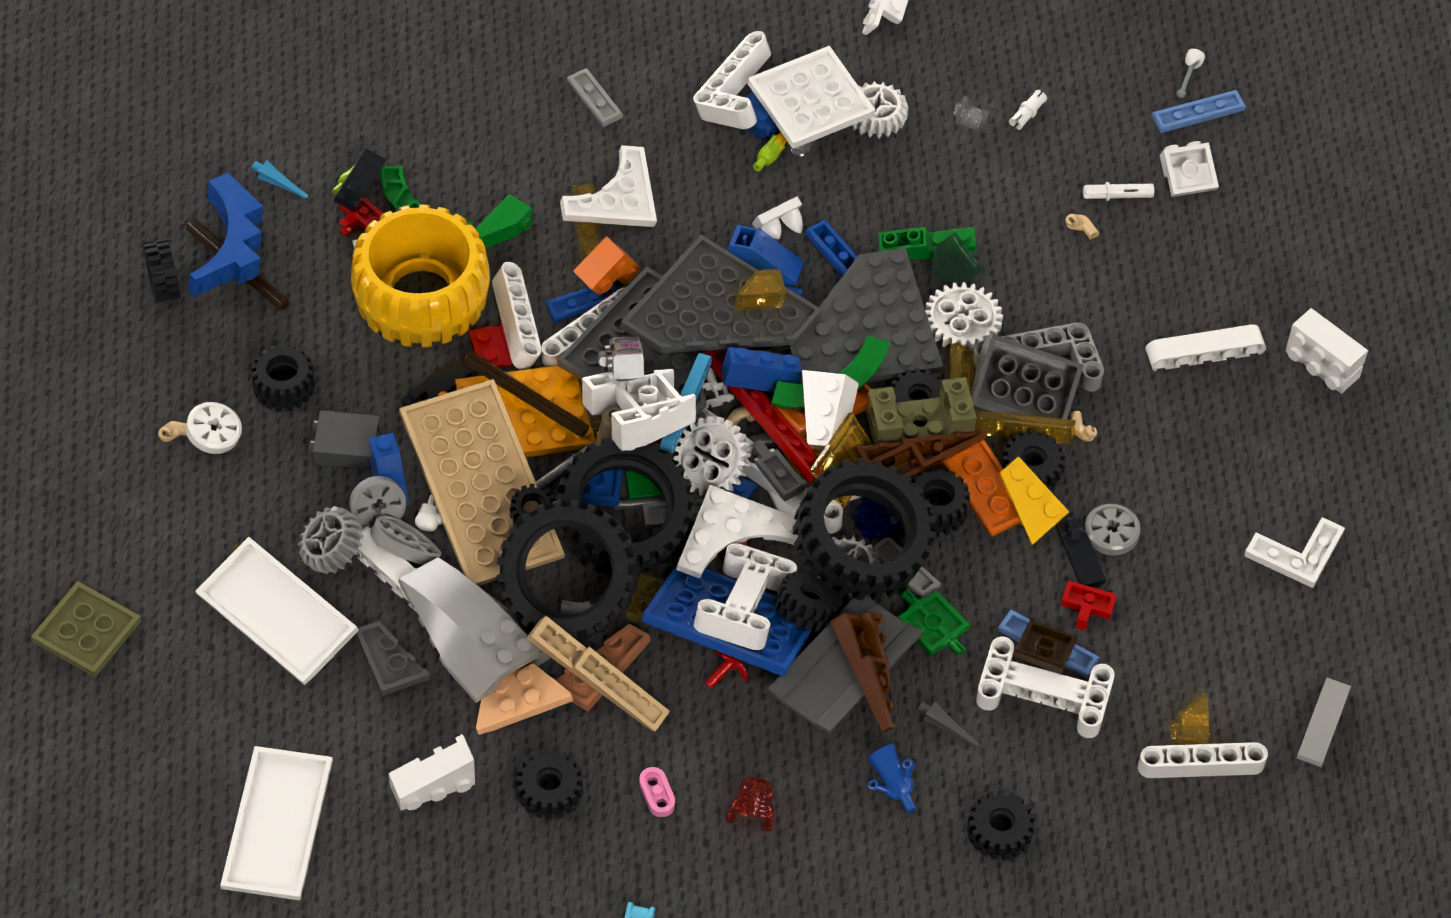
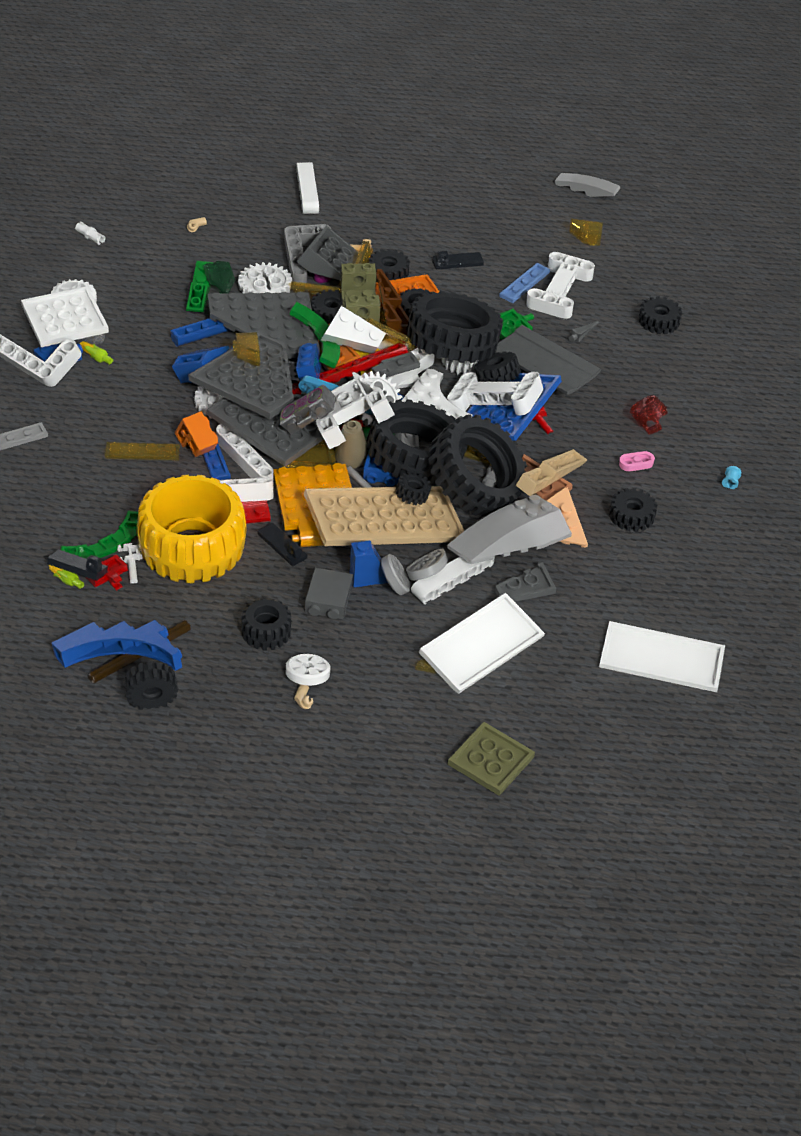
camera: 85 degrees left, 10 degrees down
(270, 174) = (51, 624): dark azure piece -> none
(335, 543) = (434, 602): light grey gear -> none
(428, 516) = (404, 555): white piece -> none
(434, 777) = (629, 561): white wedge -> none
(505, 222) = (131, 488): green slope -> none
(526, 394) = (311, 483): dark brown axle -> none
(621, 201) = (132, 427): white plate -> none
(787, 212) = (159, 354): white tile -> none
(862, 644) = (531, 346): reddish brown wedge -> none
(897, 782) = (627, 355): blue piece -> none
(970, 116) = (88, 258): clear bracket -> none
(1033, 501) = (422, 267): yellow wing -> none
(1045, 647) = (534, 277): dark brown tile -> none
(1088, 601) = (496, 259): red plate -> none
(1110, 191) = (170, 209): white axle -> none
(1112, 542) = (441, 242): light grey wheel -> none
(1189, 168) = (161, 171): white plate -> none
(1194, 59) = (67, 158): hinge -> none
(1198, 111) = (110, 165): medium blue tile -> none
(1213, 755) = (613, 232): white beam -> none
(1300, 567) = (473, 176): white plate -> none
(1326, 351) = (323, 137): white piece -> none

